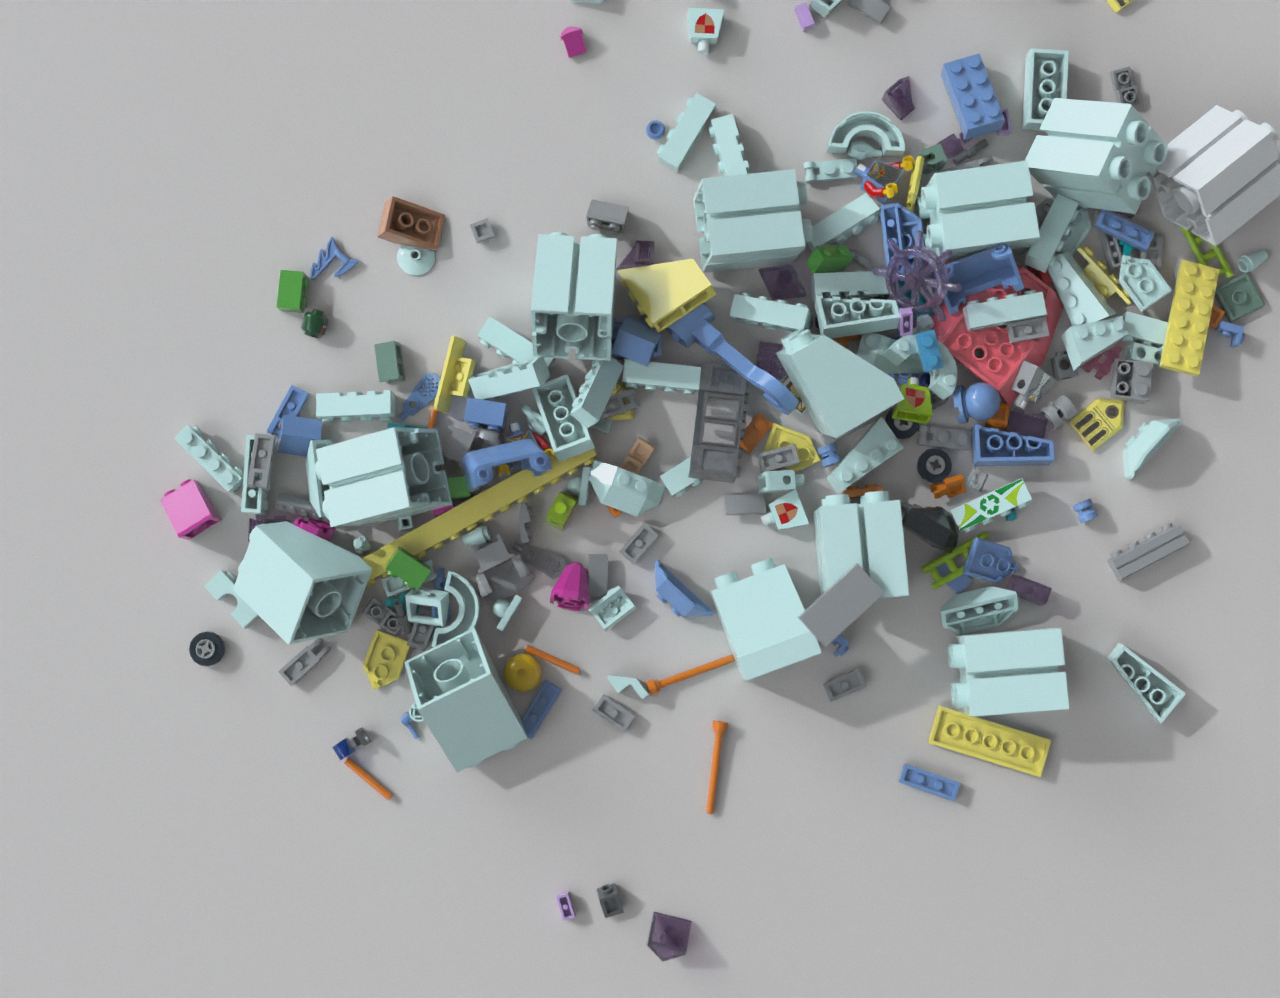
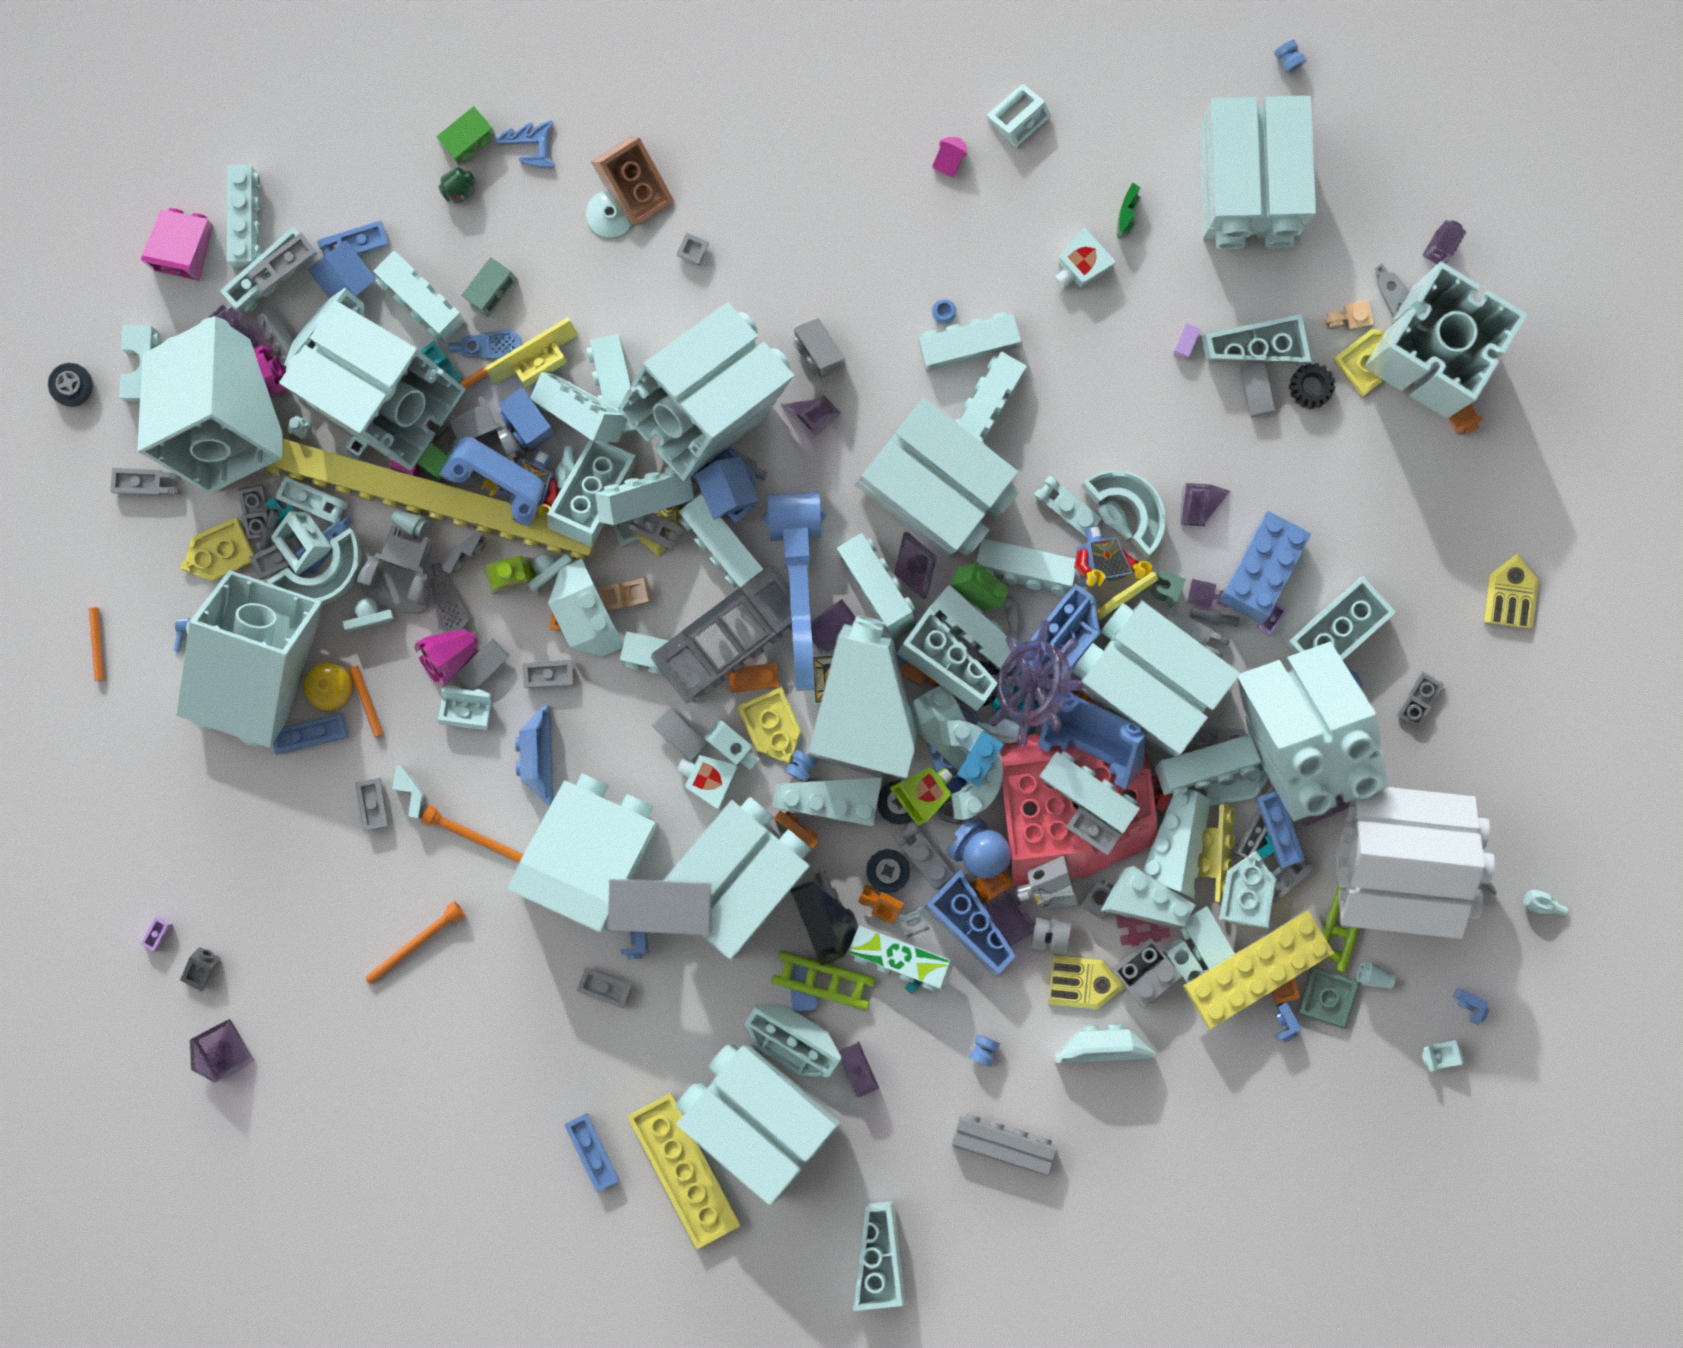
camera: 45 degrees right, 0 degrees up
(347, 747) = (106, 596): leg -> none
(408, 568) = (316, 489): bright green brick -> none
(666, 290) = (799, 468): light yellow slope -> none
(778, 458) = (750, 722): light grey plate -> none
(906, 321) = (986, 711): lavender piece -> none
(989, 561) = (848, 1008): medium blue tile -> none

